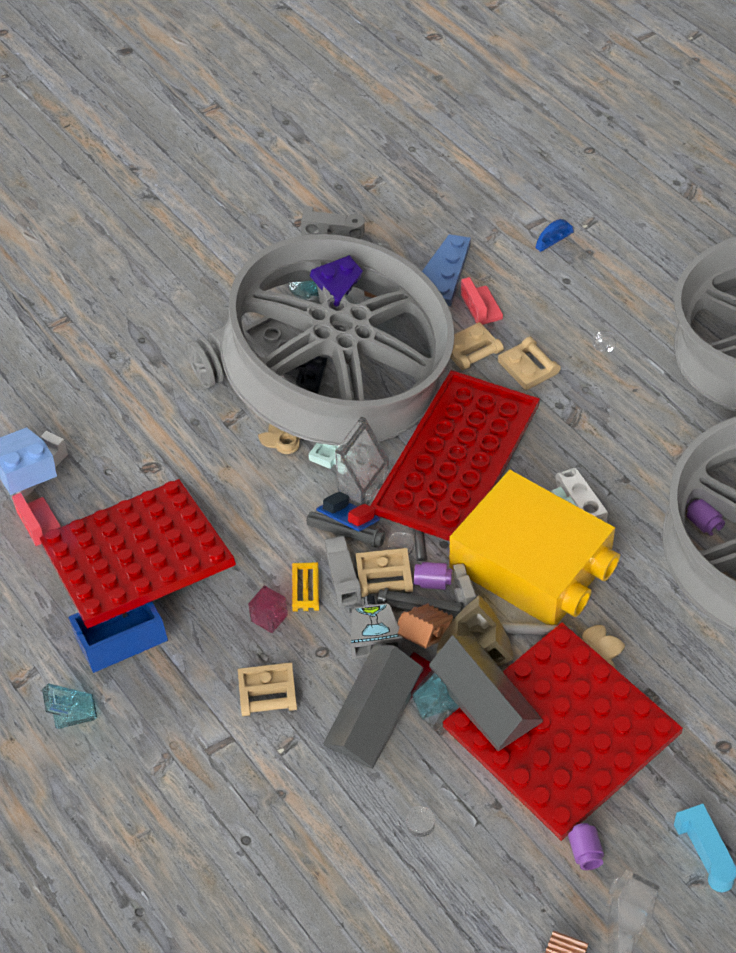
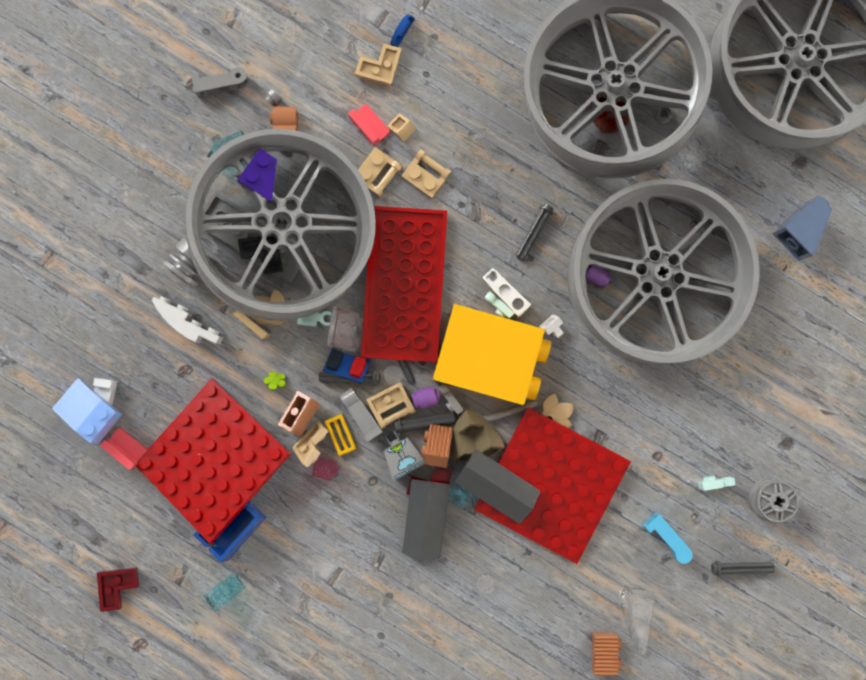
camera: 20 degrees left, 35 degrees up
(178, 420) = (179, 319): none -> white slope
(252, 504) = (275, 380): none -> lime plant
(254, 440) = (250, 323): none -> tan tile
(258, 578) = (305, 447): none -> tan plate
(265, 540) = (299, 414): none -> nougat brick
(266, 681) = (347, 521): tan plate -> none
(447, 265) = (327, 106): medium blue wing -> none
(516, 261) = (382, 70): none -> tan plate
(518, 316) = (401, 127): none -> tan slope
(586, 846) = (595, 566): medium lavender brick -> none
(628, 549) = (552, 325): none -> white tile
(661, 435) = (534, 231): none -> dark grey axle

